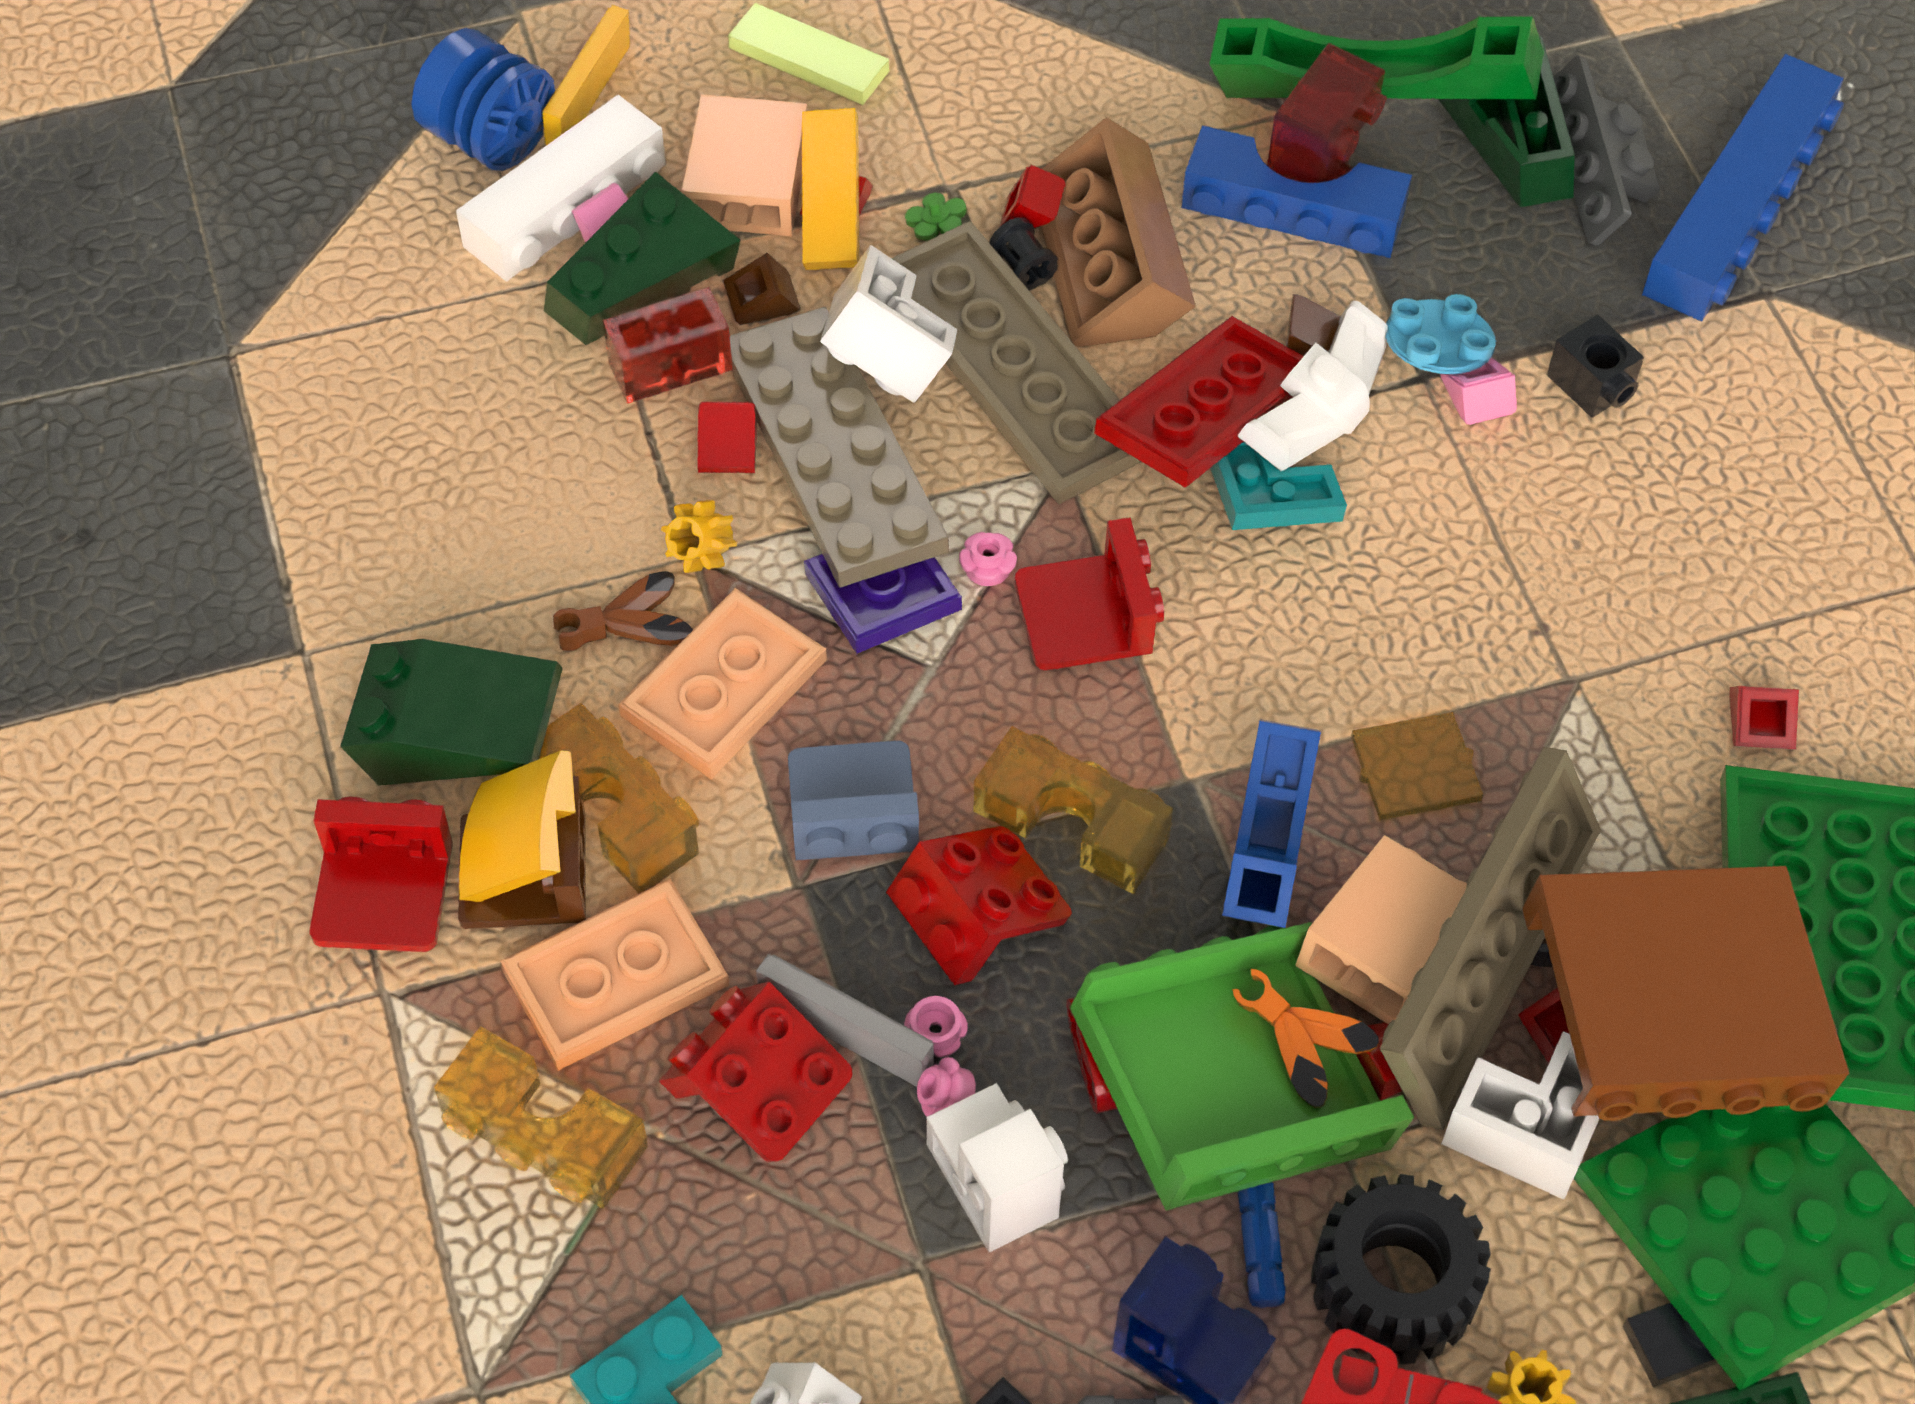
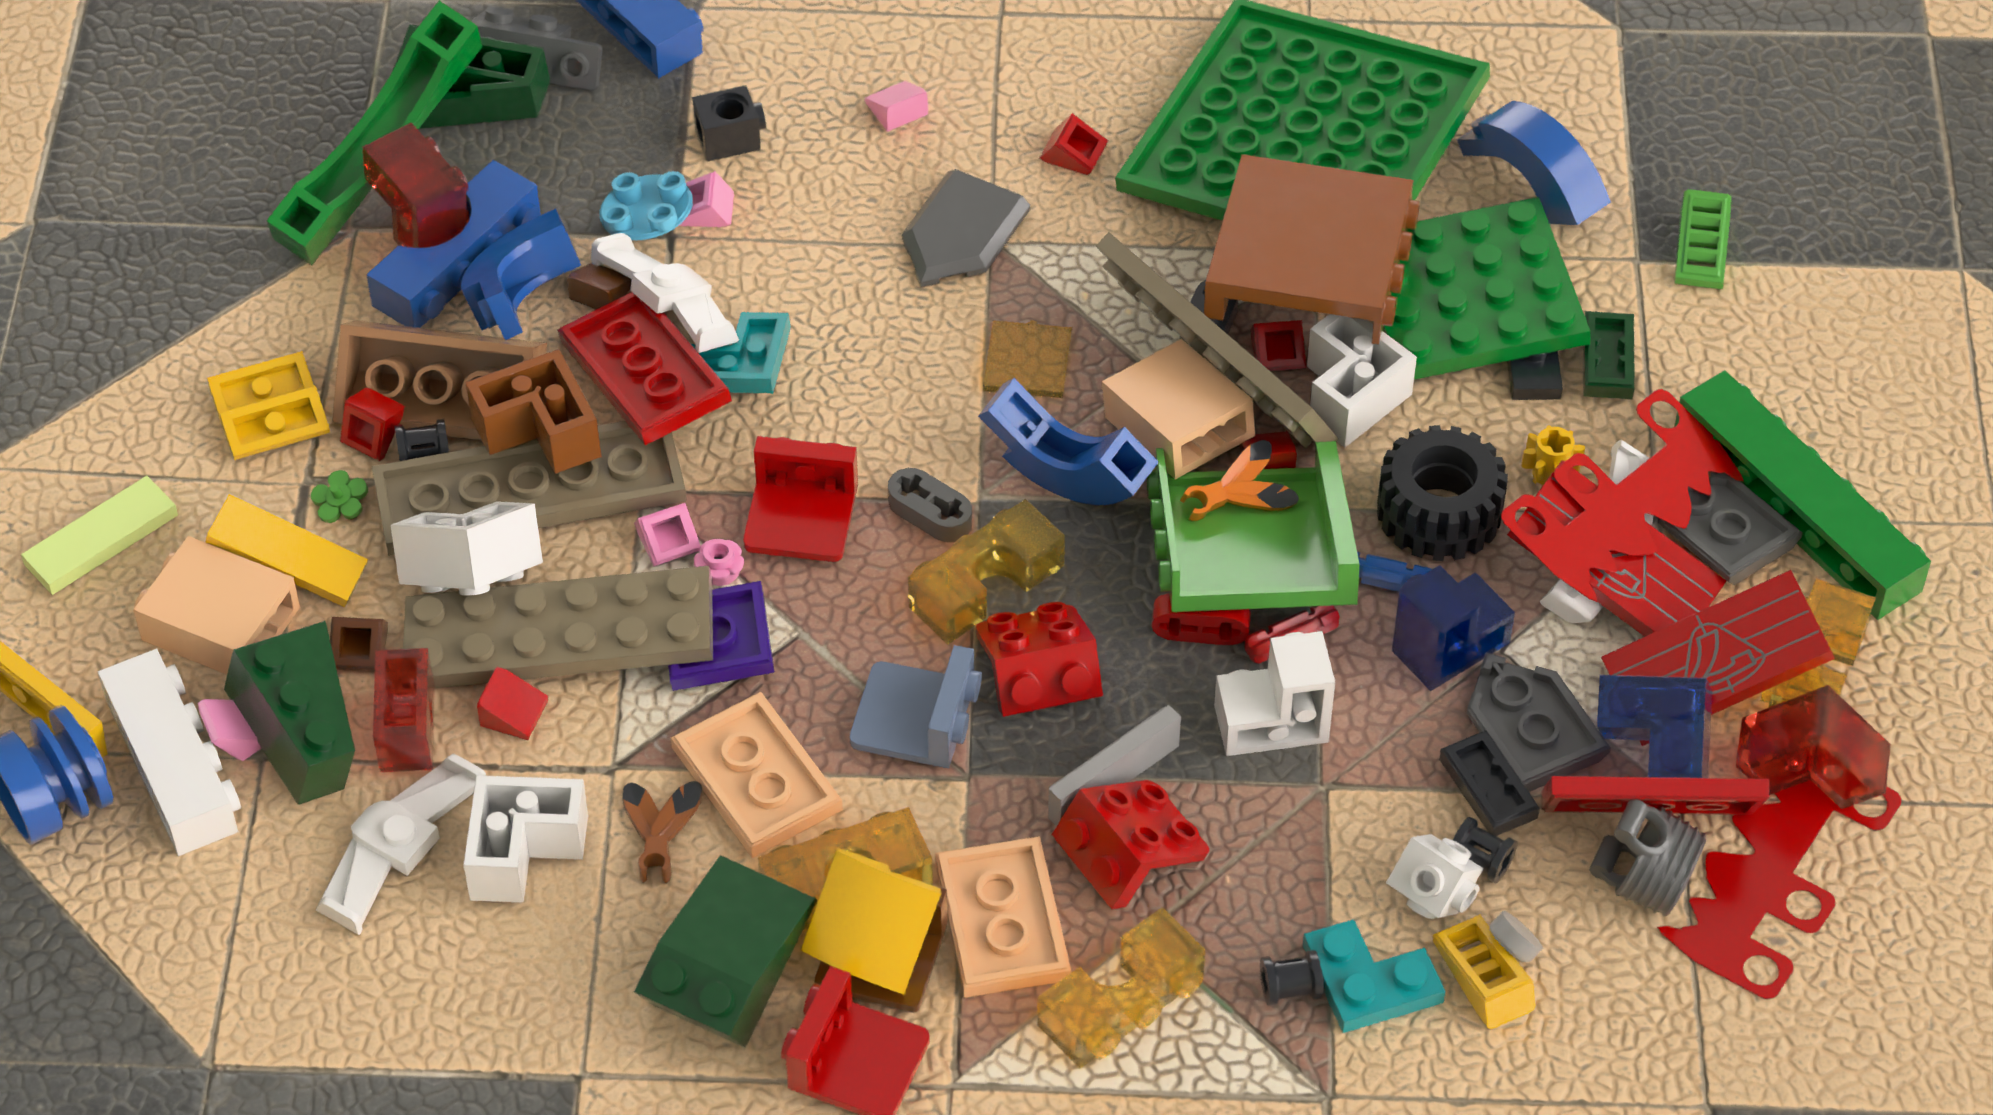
camera: 70 degrees left, 5 degrees down
(529, 401) = (394, 836): none -> white plate
(549, 478) = (518, 822): none -> white brick
(611, 1296) = (1291, 977): none -> black bush
(699, 536) = (627, 741): yellow gear -> none
(941, 1012) = (1133, 704): bright pink plate -> none
(944, 1086) = (1208, 713): bright pink plate -> none
(1006, 502) = (668, 534): none -> bright pink slope
(1020, 120) = (268, 405): none -> yellow slope
(1079, 316) = (539, 403): none -> dark orange brick
(1115, 1154) = (1319, 619): none -> red axle
(1164, 733) = (932, 502): none -> dark grey beam
(1271, 242) = (514, 268): none -> blue arch
(1574, 640) = (962, 227): none -> dark grey tile
(1724, 520) = (898, 104): none -> bright pink slope

